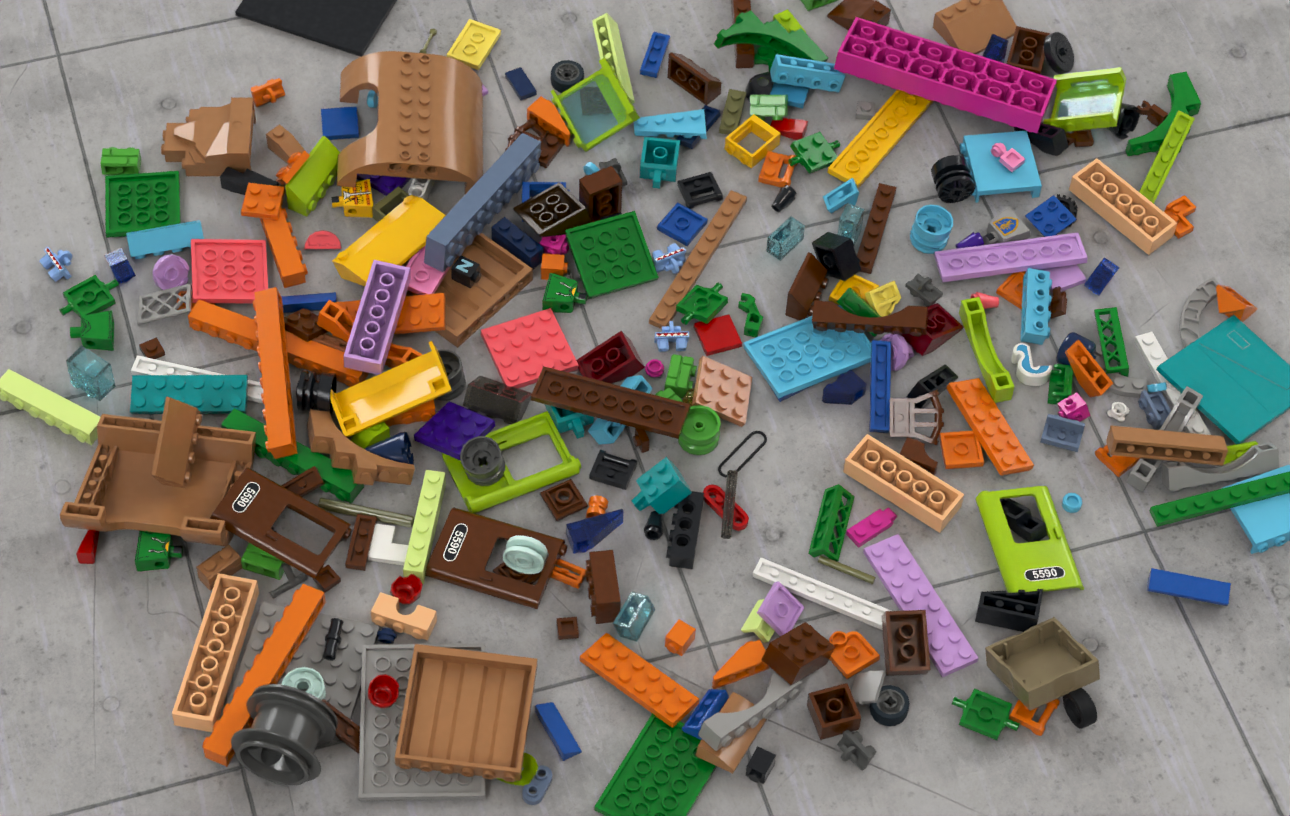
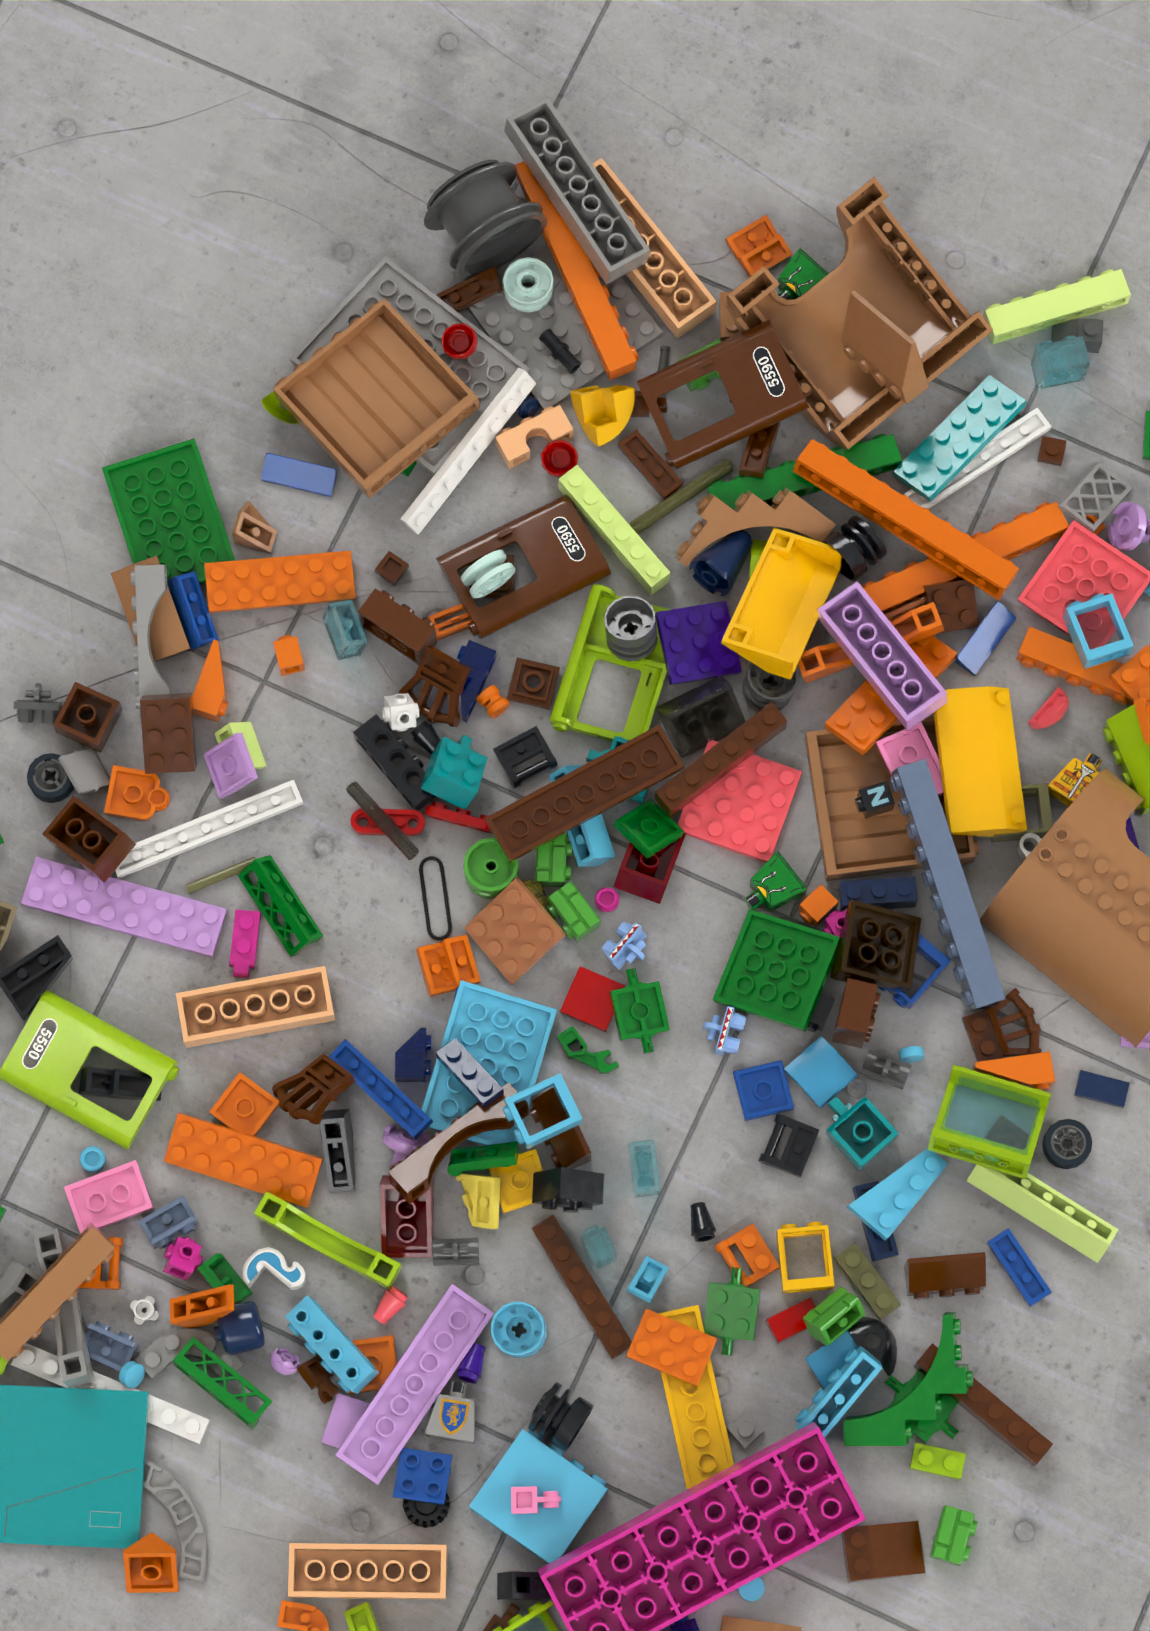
camera: 135 degrees right, 20 degrees up
(59, 381) = (1088, 328): none -> dark grey slope
(96, 331) = (1116, 412): green torso -> none
(151, 595) = (758, 246): none -> orange slope
(213, 696) = (577, 190): none -> light grey brick
(263, 223) = (1104, 653): none -> medium azure window
(350, 590) = (603, 410): none -> yellow brick
(383, 548) = (628, 480): white tile -> none
(441, 637) = (468, 451): none -> white plate
(512, 360) = (720, 759): none -> reddish brown brick
(539, 784) = (260, 415): sand blue plate -> none
(595, 367) = (648, 828): none -> green tile
(610, 534) = (445, 674): none -> reddish brown plate
(620, 726) = (253, 530): none -> medium nougat slope
(646, 203) = (820, 1072): none -> dark azure slope
(654, 546) = (400, 712): none -> white brick
(678, 458) = (460, 817): none -> red plate
(698, 259) = (704, 1067): medium nougat plate -> none
(760, 765) = (100, 611): black brick -> none
(774, 416) = (447, 964): none -> orange slope
(809, 294) = (561, 1089): none -> medium azure window
(827, 342) = (469, 1073): none -> plate
(863, 161) = (671, 1347): none -> orange plate
(915, 452) = (276, 1051): reddish brown arch -> none
(1067, 323) = (284, 1362): none -> lavender plate
(1083, 475) = (109, 1197): none -> bright pink plate
(1101, 276) = (308, 1460): clear blue slope -> none

